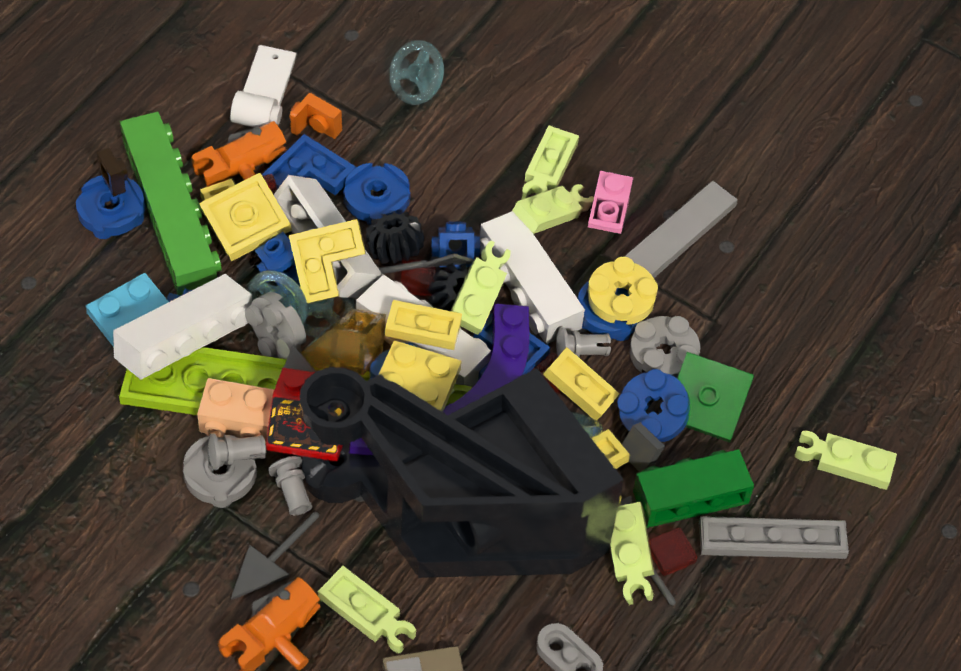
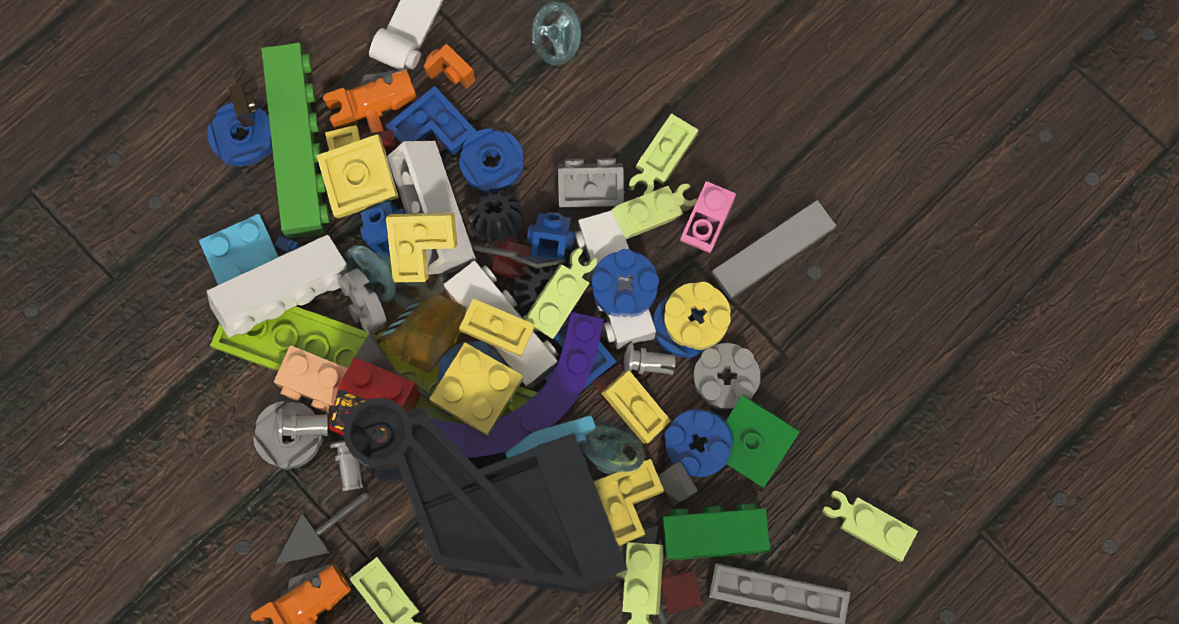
camera: 15 degrees right, 20 degrees up
(482, 197) = (590, 183): none -> light grey bracket
(548, 253) = (625, 303): none -> blue plate

